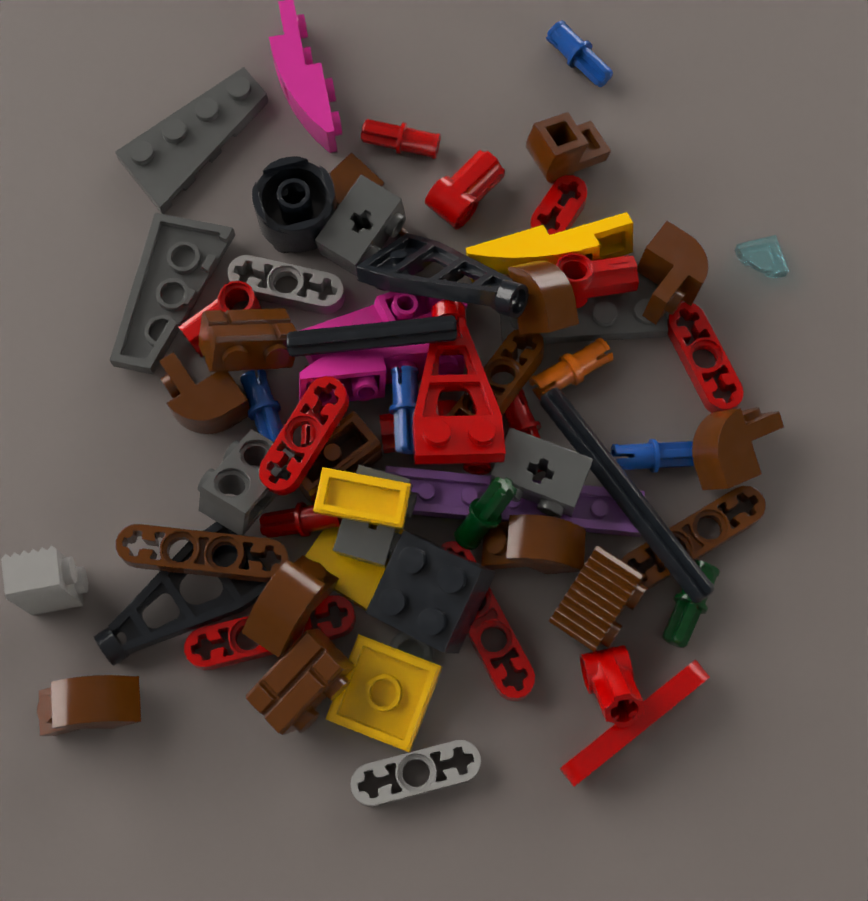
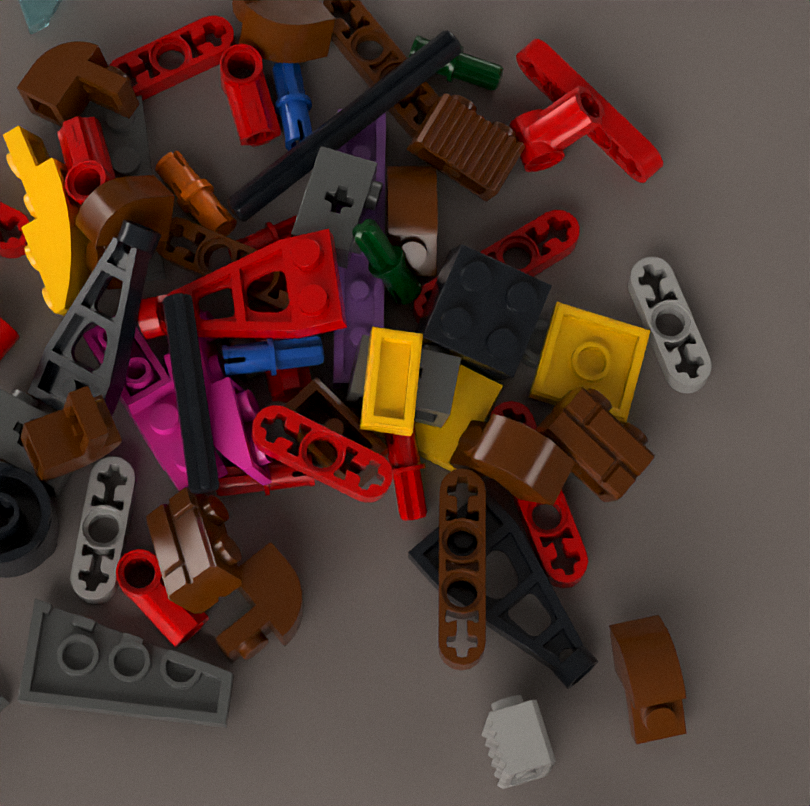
camera: 100 degrees left, 0 degrees up
(239, 478) = (373, 528): dark grey brick -> none
(262, 404) = (278, 529): blue axle -> none
(344, 242) = (70, 436): none -> reddish brown brick
(658, 418) = (249, 96): none -> red piece

